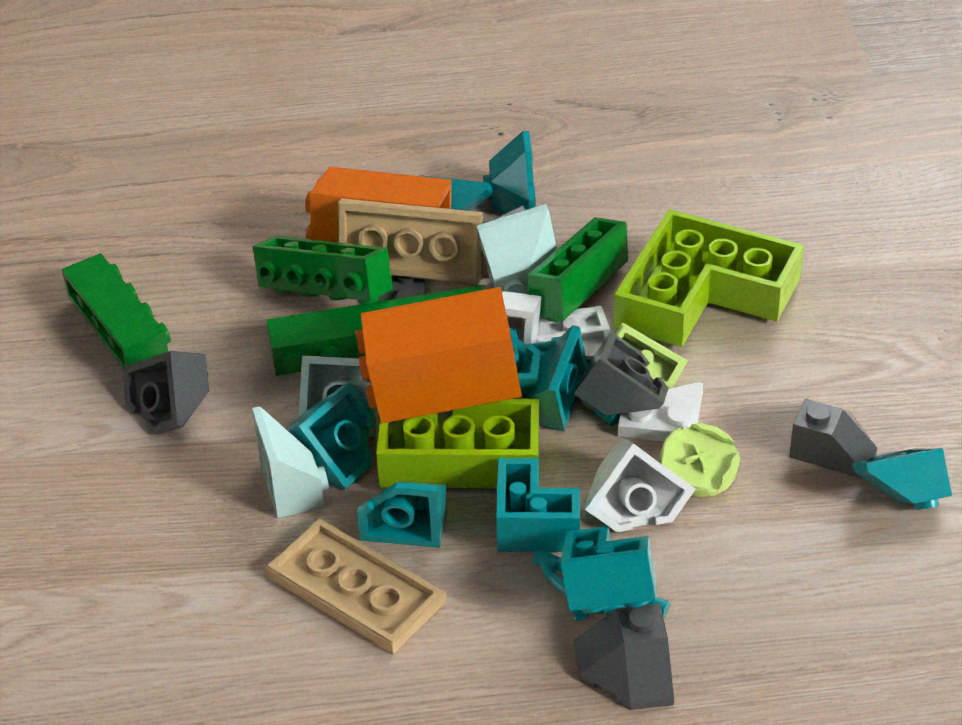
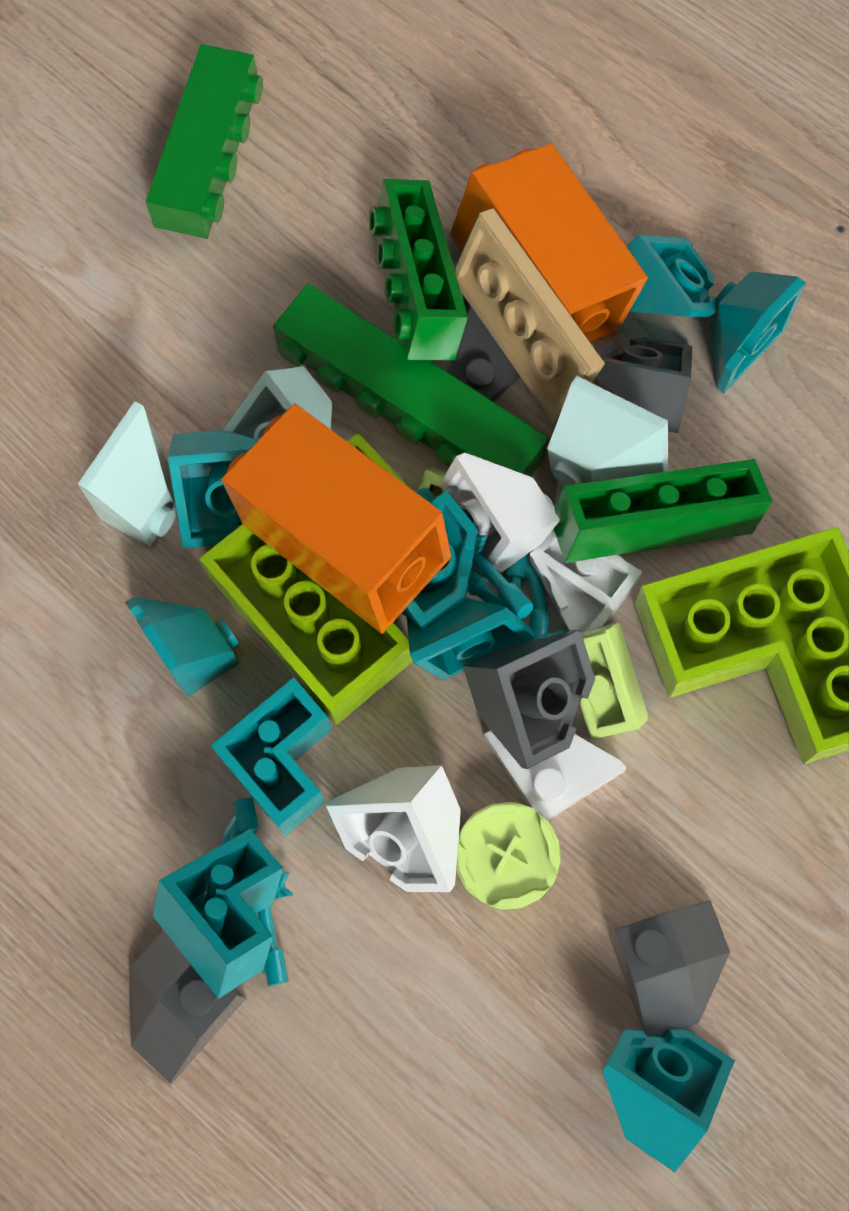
camera: 50 degrees right, 30 degrees up
(166, 388) = (154, 283): dark grey slope -> none
(356, 585) = (71, 667): tan tile -> none

